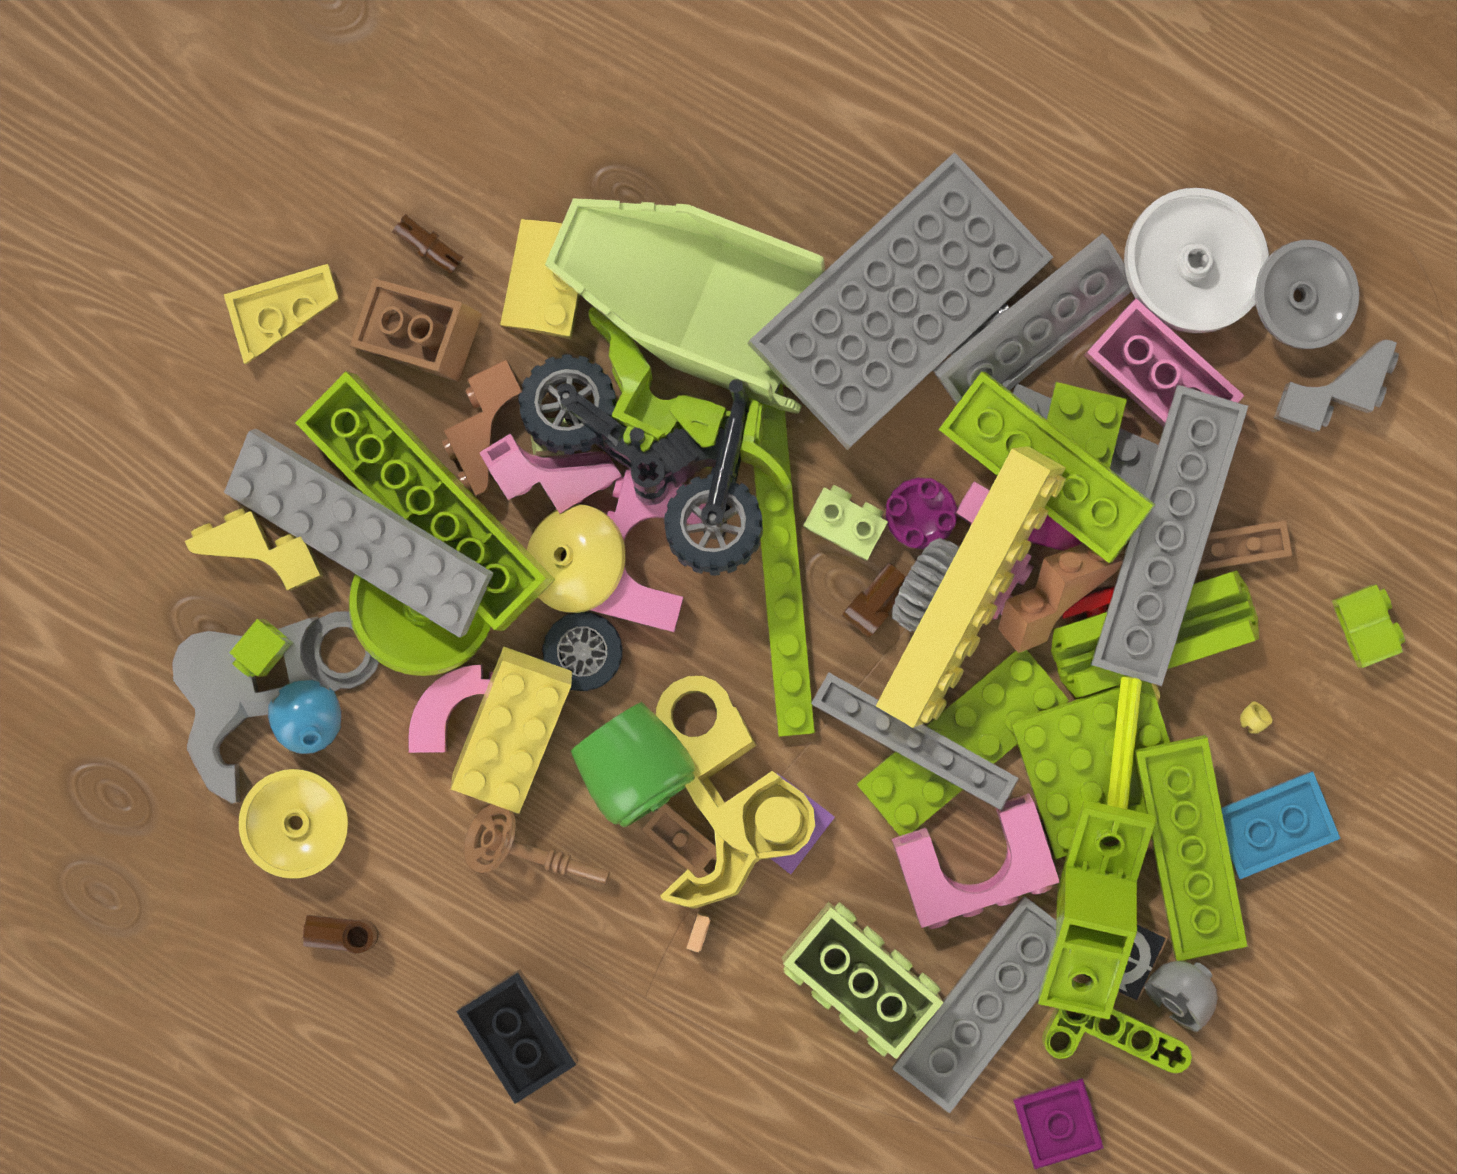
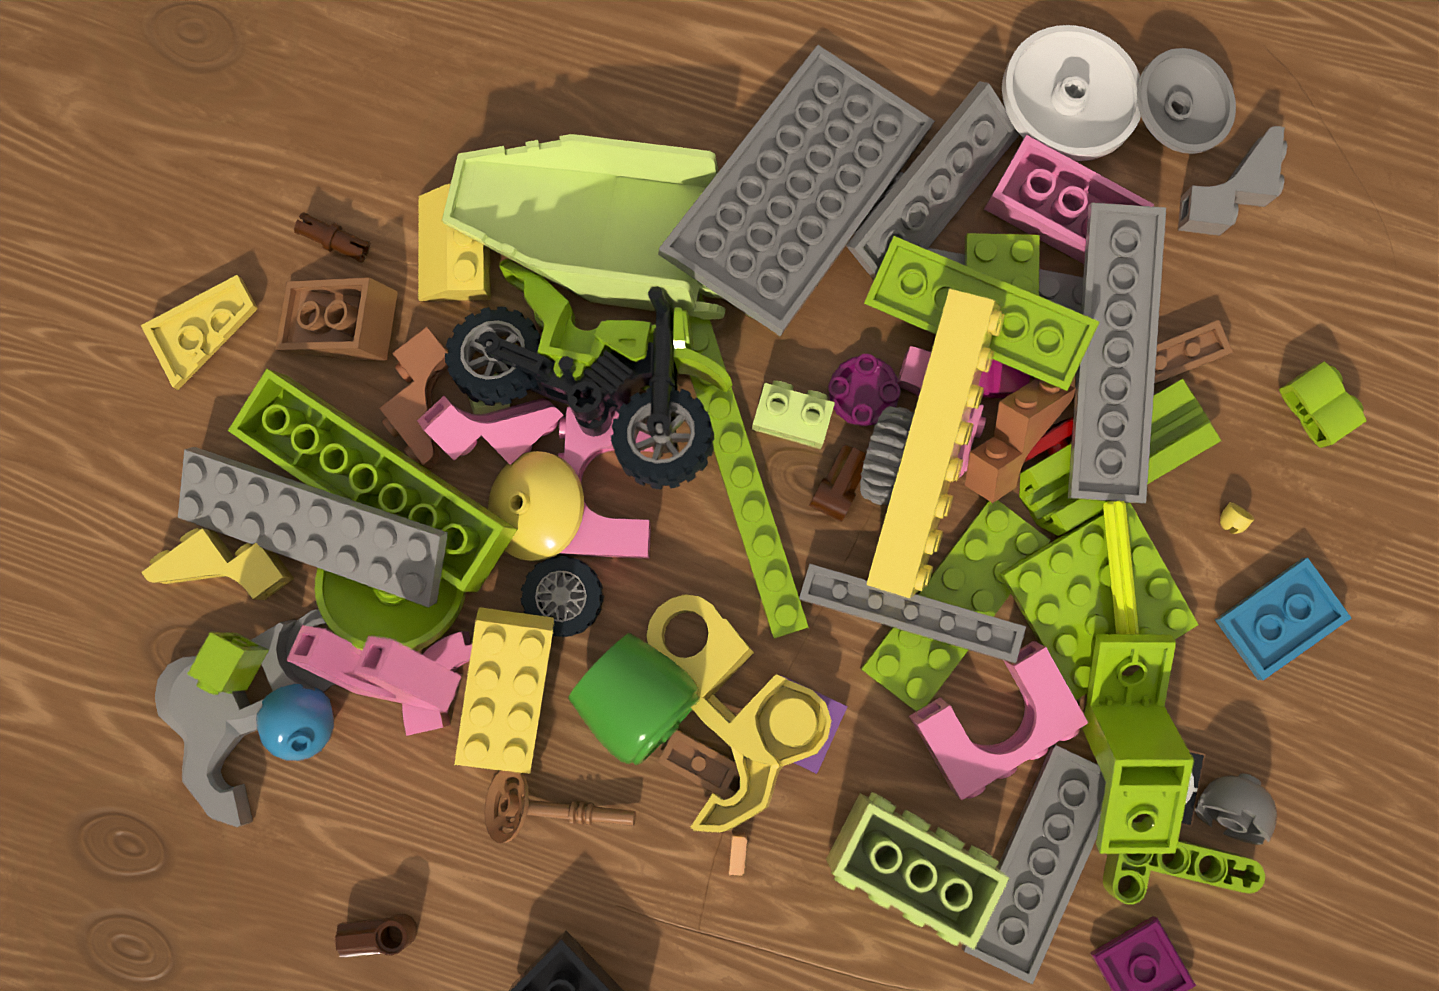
camera: 10 degrees left, 5 degrees down
(267, 827) = (280, 838): light yellow dish -> none
(411, 692) = (379, 671): none -> bright pink arch
(1191, 848) = (1210, 660): lime plate -> none

